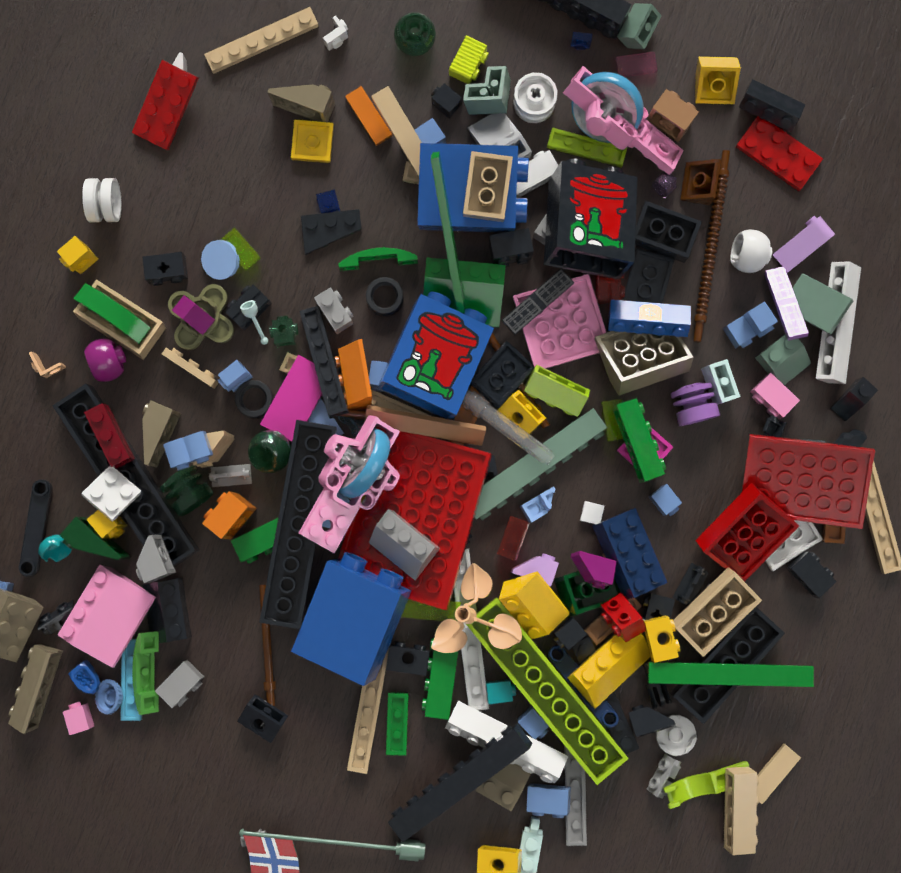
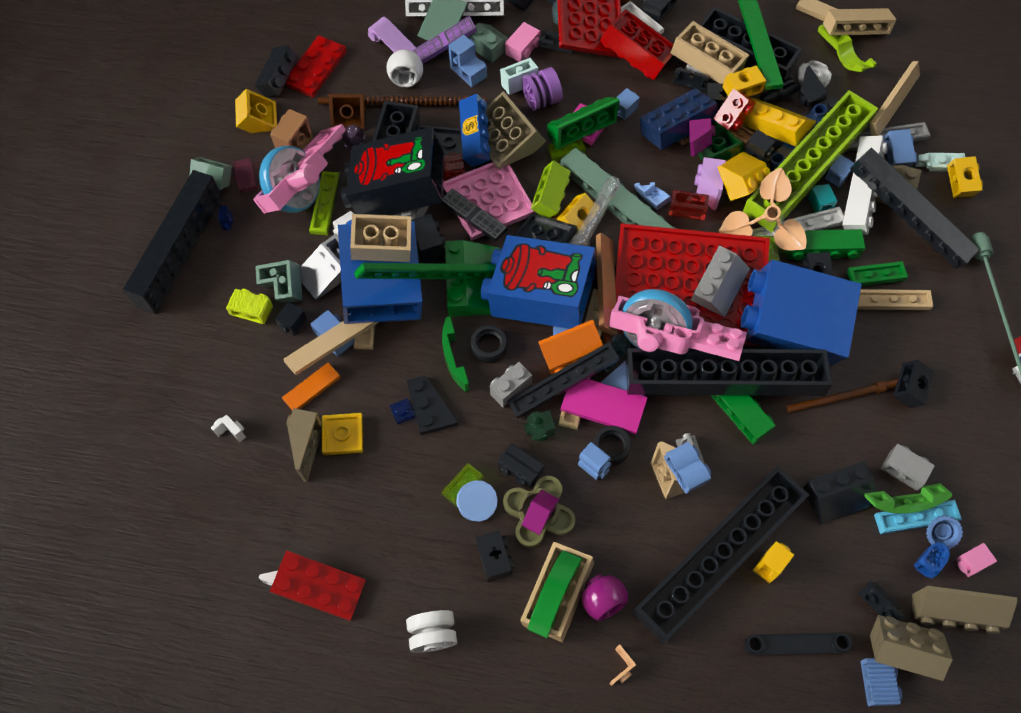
camera: 100 degrees left, 20 degrees down
(53, 548) = (812, 618): teal hair -> none
(76, 255) = (496, 648): yellow brick -> none
(82, 536) = (797, 576): dark green slope -> none
(106, 615) = (866, 545): bright pink slope -> none
(109, 435) = (686, 566): dark red brick -> none
(111, 493) = (745, 554): white plate -> none
(154, 560) = (804, 493): light grey slope -> none
(157, 430) = (663, 527): dark tan slope -> none
(184, 487) = (722, 489): clear green wheel -> none
(191, 366) = (592, 511): tan plate -> none
(228, 515) = (735, 437): orange brick -> none
(250, 310) = (529, 454): light aqua hinge -> none
(261, 40) = (239, 504): tan plate -> none
(269, 451) = (662, 416): clear green wheel -> none
(418, 44) = (226, 362): clear green wheel -> none
(535, 97) = (283, 242): white wheel -> none
(592, 512) = (649, 155): white tile -> none
(620, 818) = (895, 99): none -> tan tile
(666, 768) = (850, 78): light grey hinge -> none

